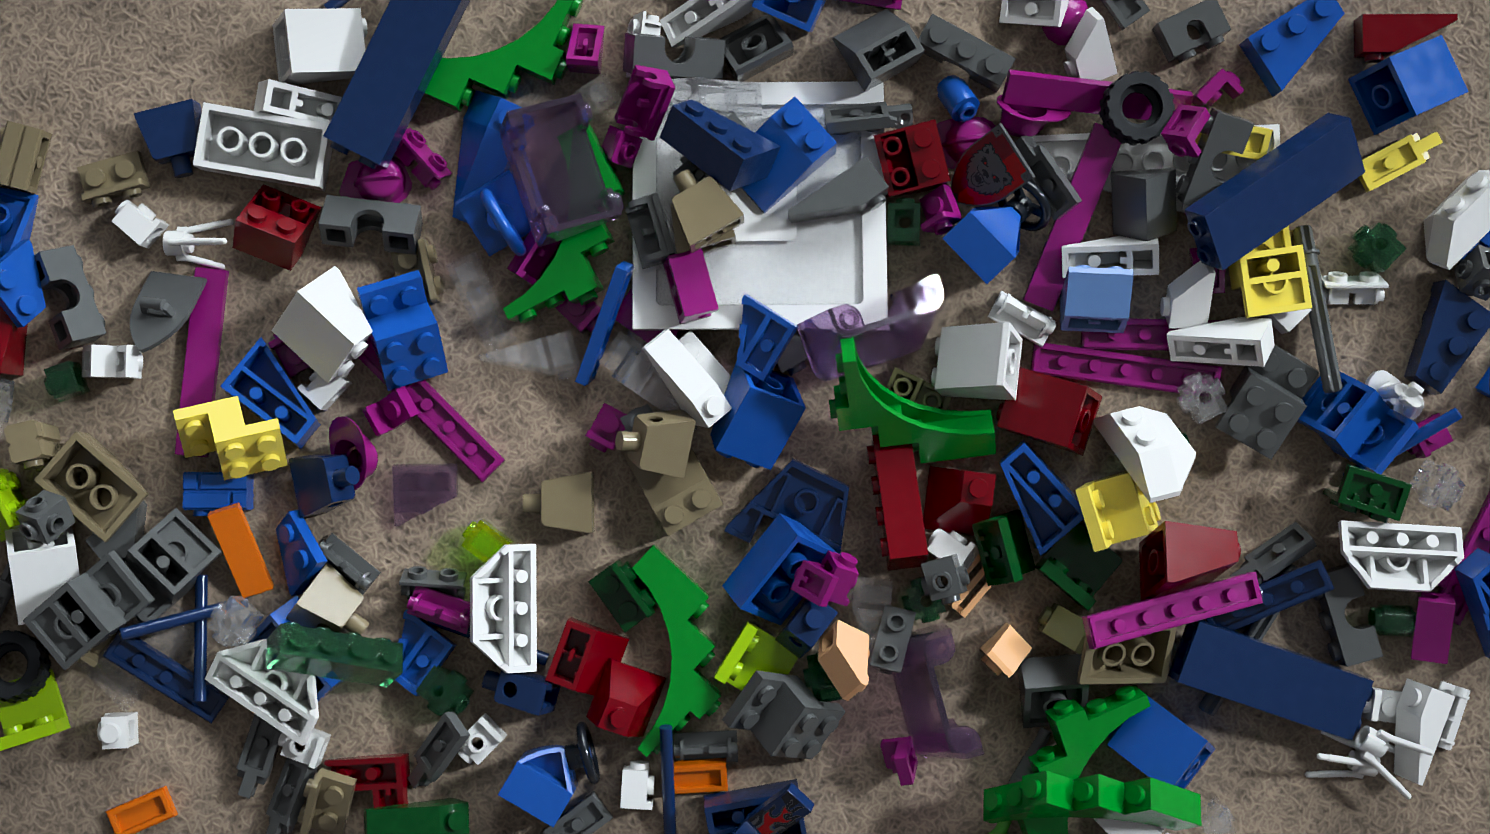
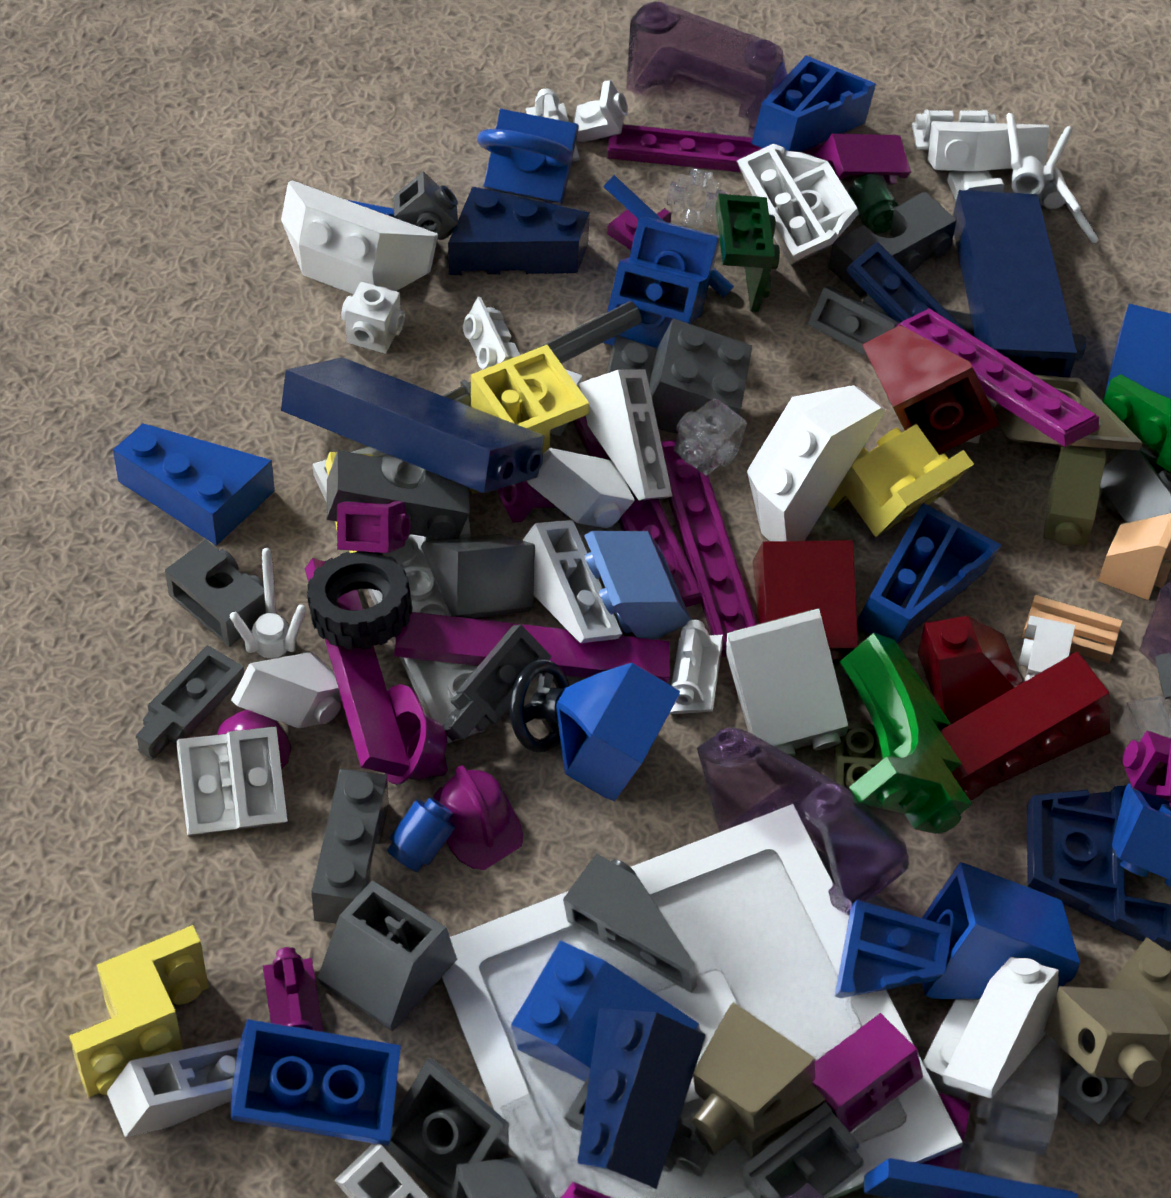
camera: 120 degrees left, 35 degrees down
(605, 428) = (1118, 1154): magenta bracket -> none
(866, 117) = (499, 937): dark grey hinge -> none
(904, 209) = (632, 834): clear green brick -> none
(912, 159) = (528, 857): dark red slope -> none
(912, 602) = (1127, 665): clear green brick -> none
(940, 210) = (593, 807): magenta bracket -> none
(951, 569) = (1097, 623): dark grey brick -> none
(990, 170) = (514, 751): shield -> none
(1003, 548) = (1018, 588): dark green bracket -> none
(1076, 567) = (994, 511): dark green bracket -> none
(1149, 54) = (270, 632): none -> white plant
(1211, 92) = (289, 547): magenta bracket -> none
(1376, 247) = (433, 325): clear green brick -> none
(1384, 34) = (148, 379): dark red slope -> none
(1391, 210) = (373, 317): none -> white brick
(1397, 159) = (306, 335): light yellow hinge -> none
(1400, 397) = (611, 248): white piece -> none
(1408, 84) = (213, 349): blue slope -> none

